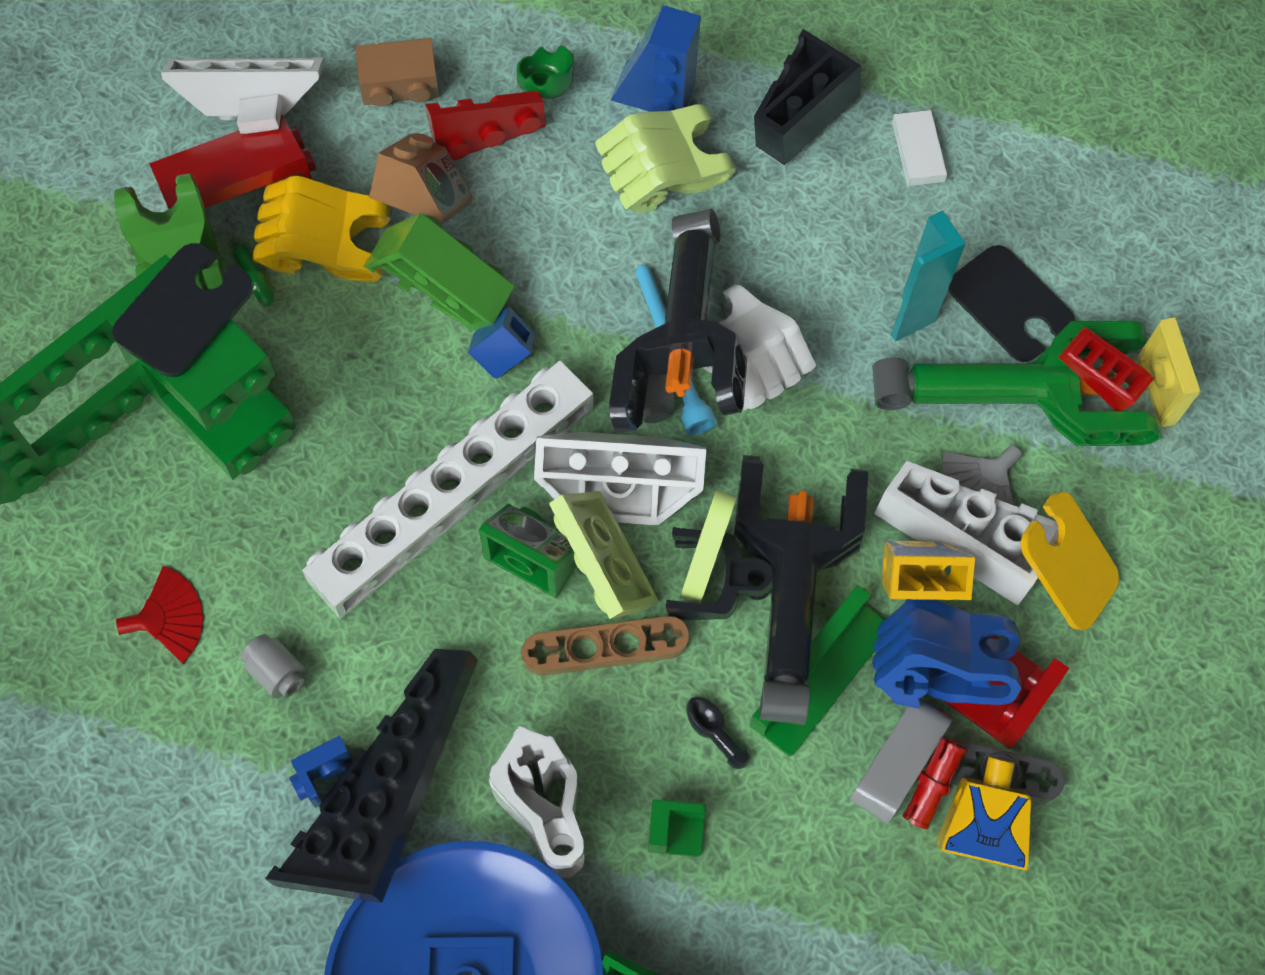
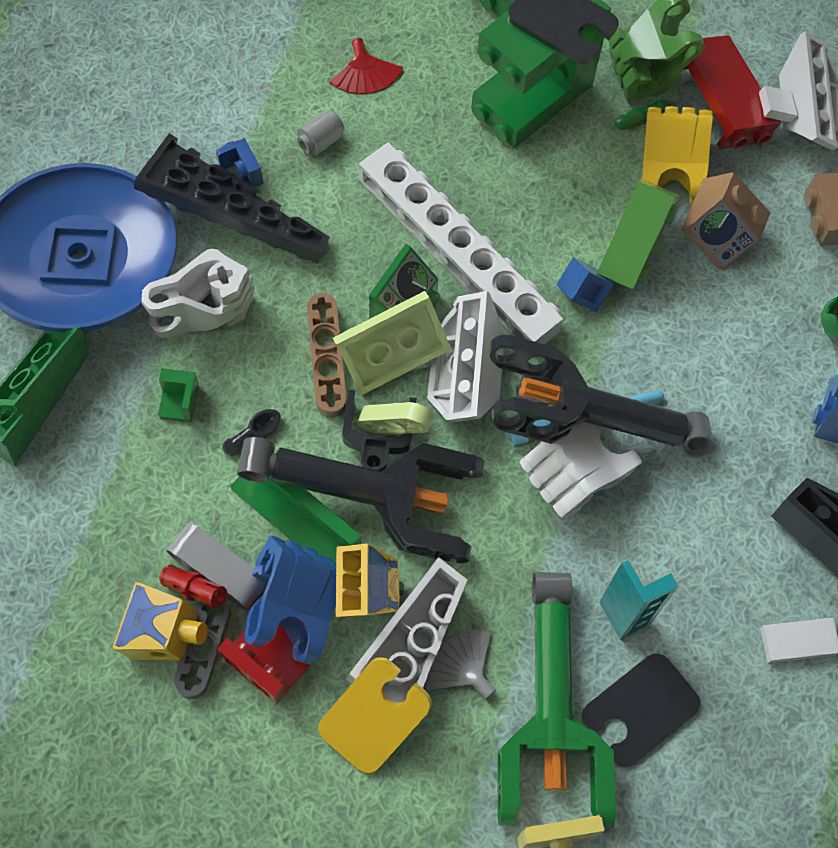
camera: 90 degrees right, 0 degrees up
(484, 125) = (781, 260): red wing -> none
(658, 154) = (764, 404): yellowish green piece -> none
(1107, 389) = (541, 796): red slope -> none

